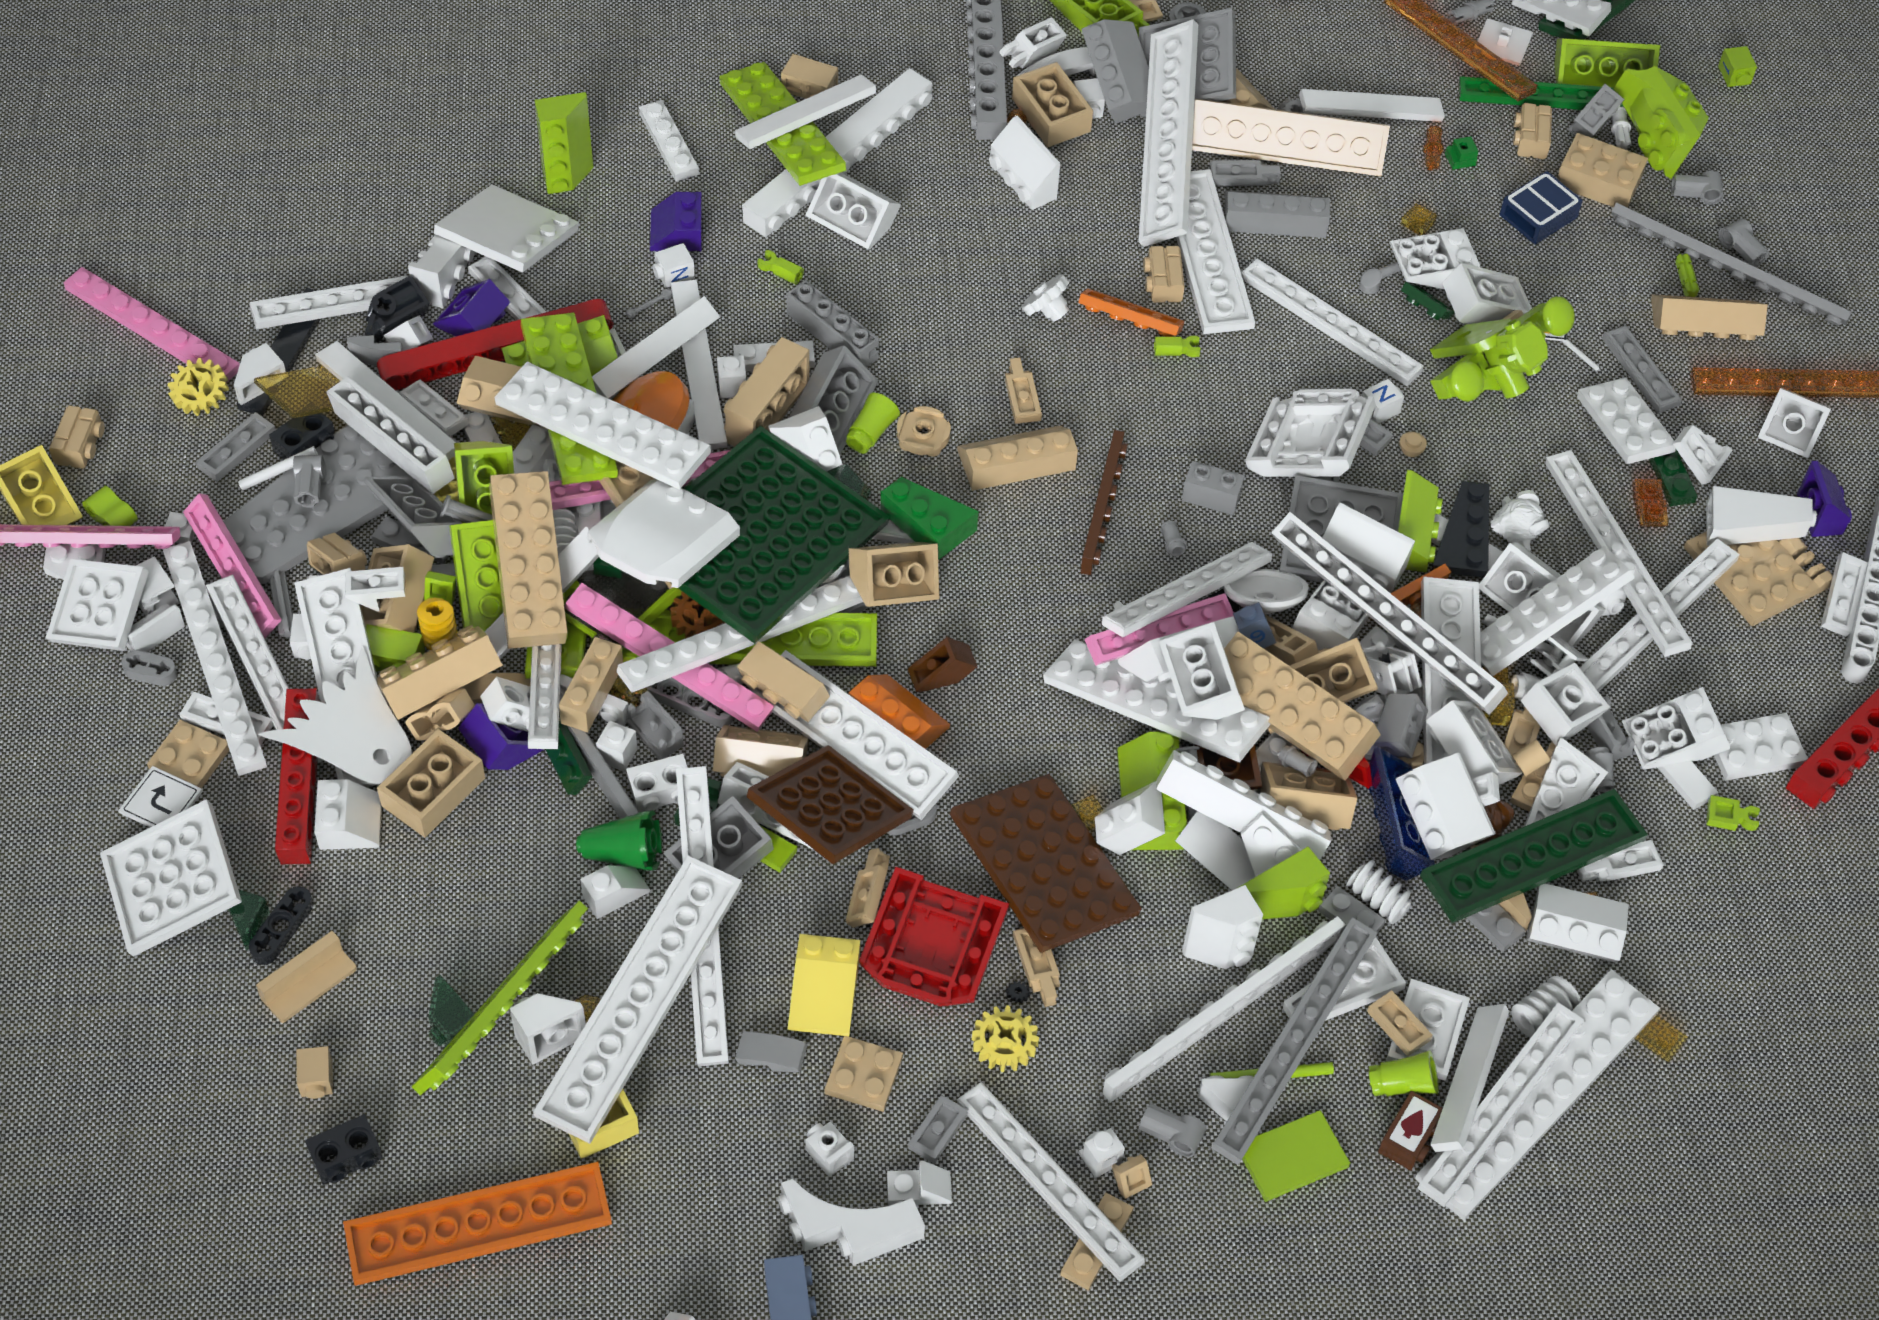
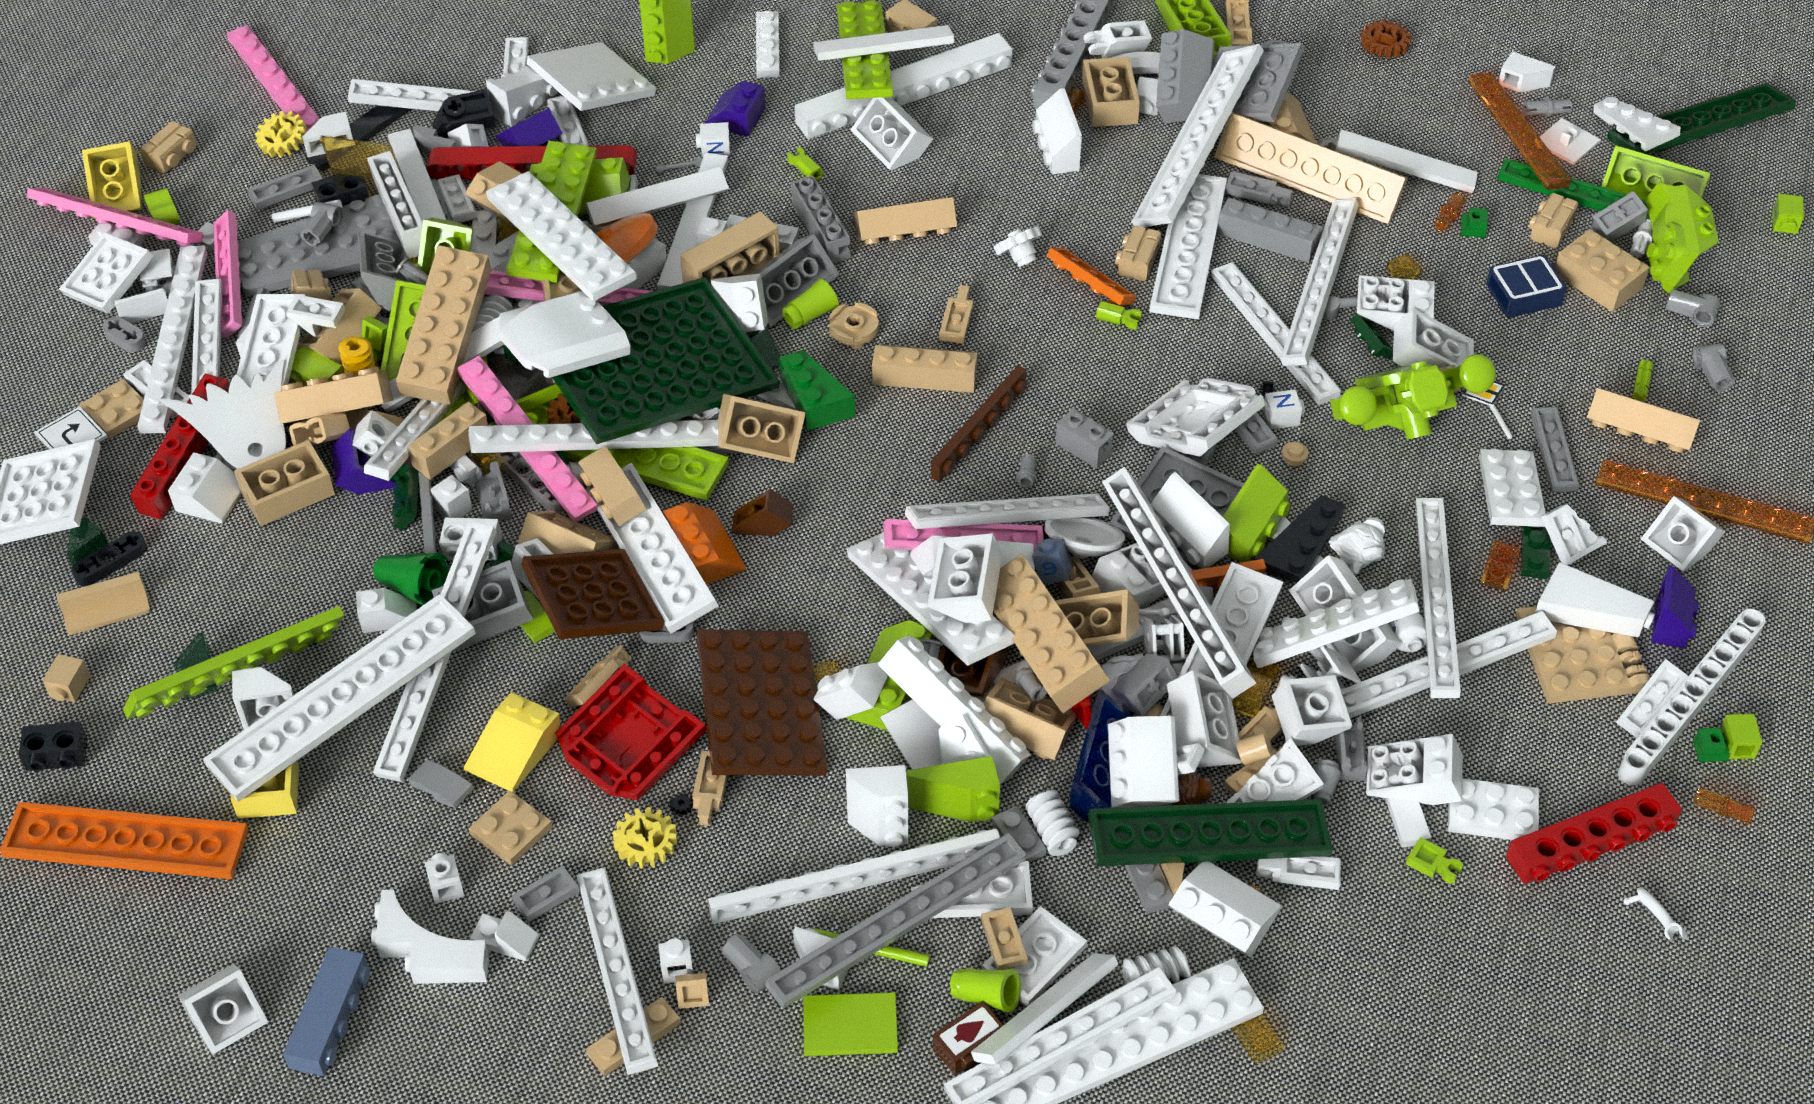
camera: 25 degrees right, 5 degrees down
(407, 229) = (515, 54): none -> white tile
(916, 301) = (905, 219): none -> tan slope
(1353, 258) = (1319, 282): none -> white plate
(1353, 383) = (1267, 387): none -> black piece
(1739, 269) = (1696, 387): light grey plate -> none

